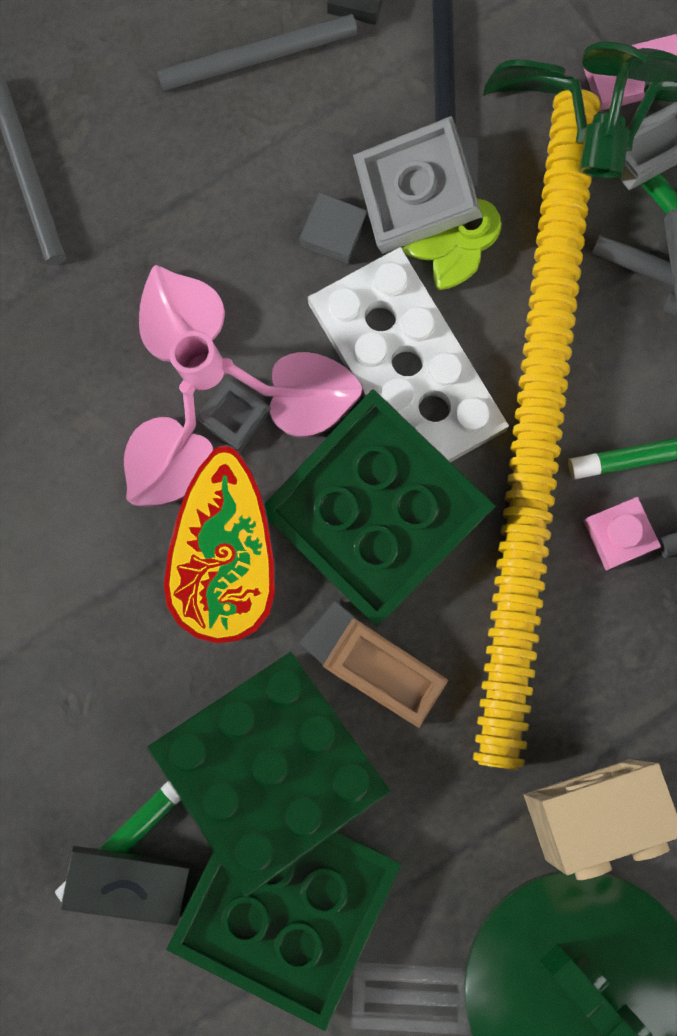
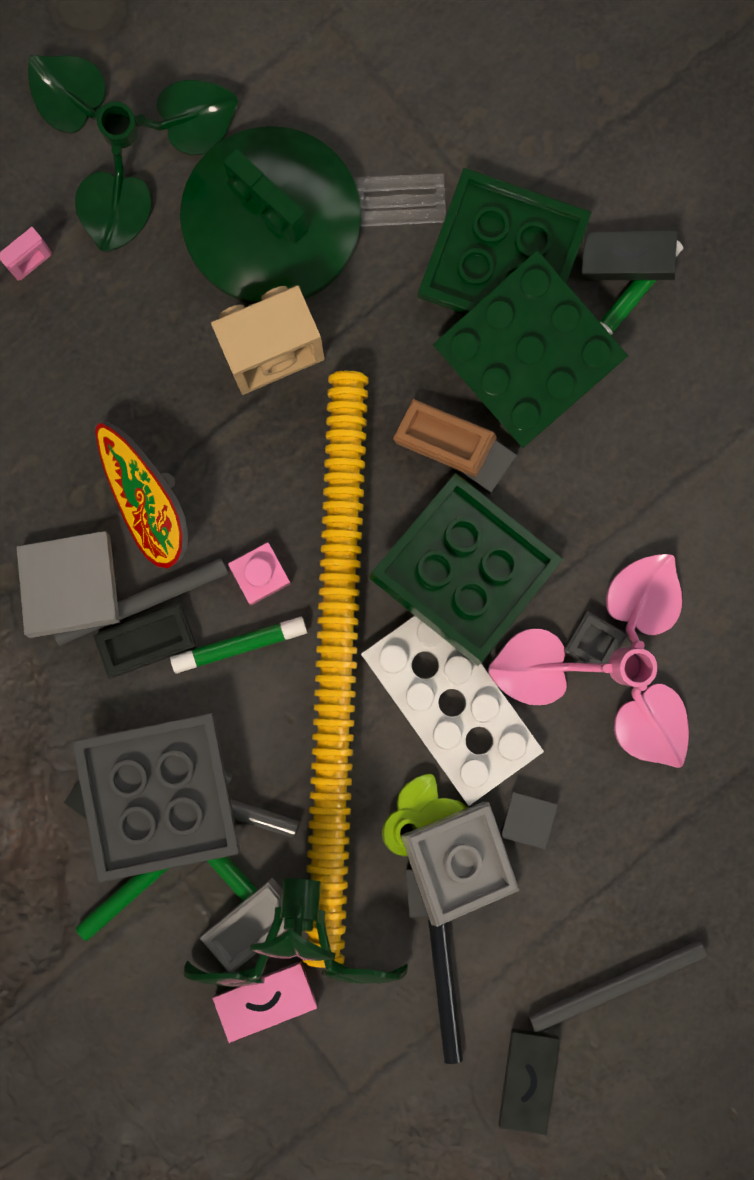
camera: 175 degrees right, 5 degrees up
(221, 553) = (590, 519): shield -> none

